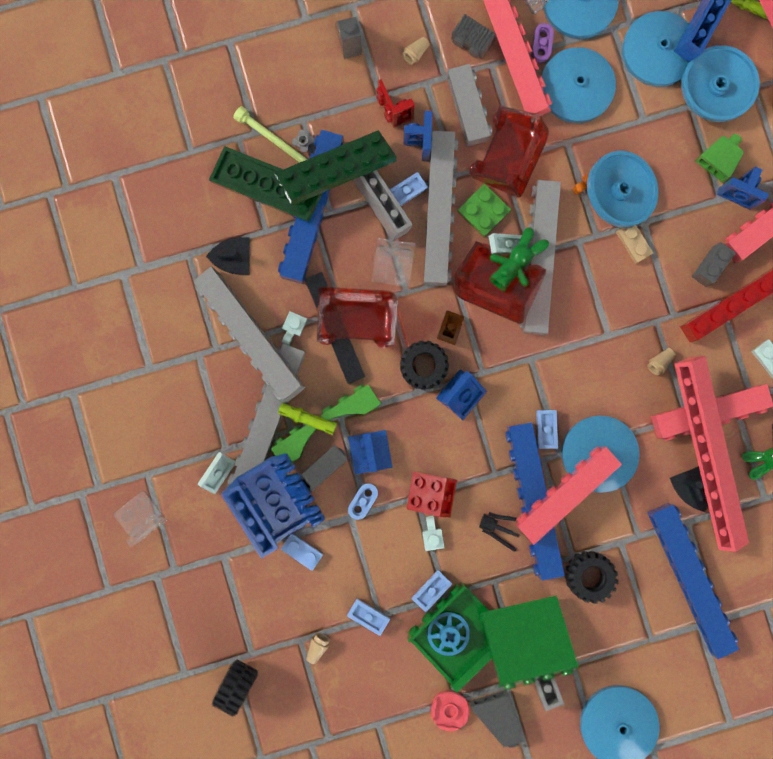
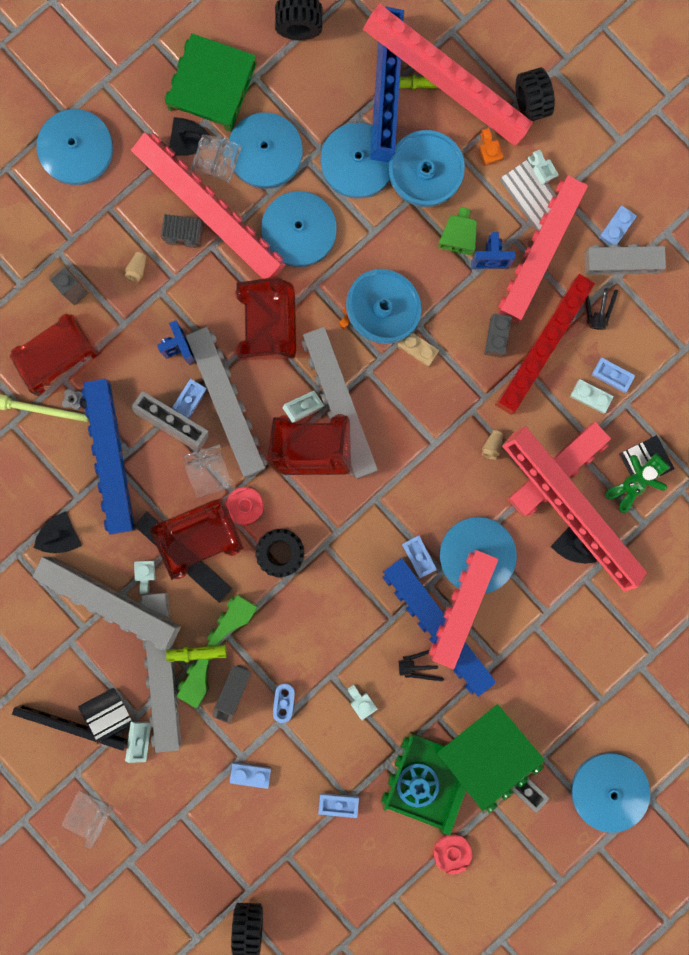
camera: 30 degrees left, 0 degrees up
(163, 430) = (66, 726): none -> black tile
(199, 435) = (105, 715): none -> slope
(258, 182) = (57, 456): dark green plate -> none
(271, 503) = (199, 747): blue slope -> none
(305, 91) = (52, 353): none -> clear red windscreen
(317, 648) = (306, 855): tan cone -> none
(335, 167) = (112, 412): dark green plate -> none
(370, 452) = (269, 654): blue bracket -> none
(397, 114) = (147, 335): red bracket -> none
(412, 309) = (245, 505): none -> coral tile
(431, 494) = (343, 666): red bracket -> none
(431, 591) = (384, 753): light blue plate -> none
(450, 327) = (287, 507): reddish brown slope -> none
(461, 394) = (327, 562): blue bracket -> none
(468, 105) = (208, 295): light grey brick -> none
(484, 210) = (268, 384): bright green plate -> none
(499, 717) = (498, 838): dark grey slope -> none
(518, 259) = (319, 415): green animal -> none
(542, 44) = (249, 206): medium lavender plate -> none
(605, 584) = (534, 681): black tyre -> none
(693, 581) = (614, 630): blue brick -> none

